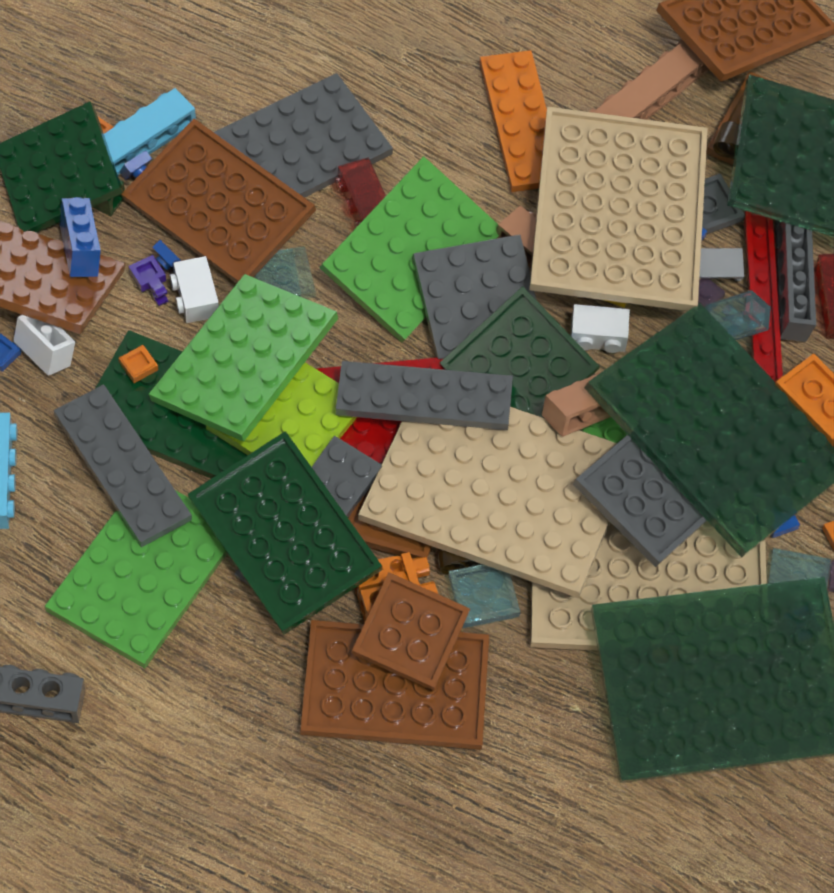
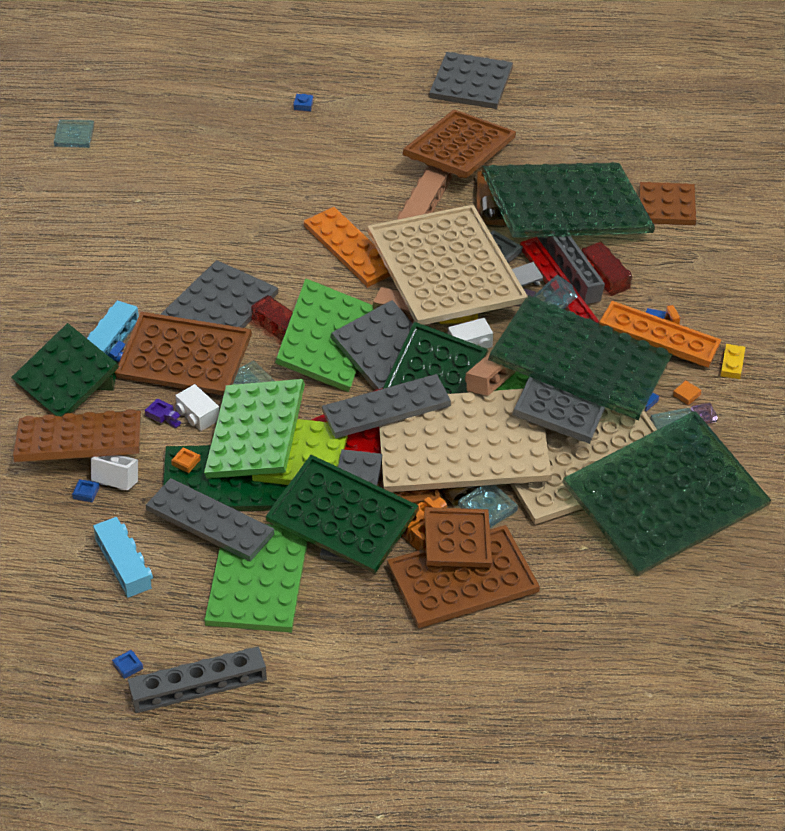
camera: 20 degrees left, 15 degrees down
(80, 237) = (105, 401): blue brick -> none
(166, 256) = (167, 395): blue plate -> none

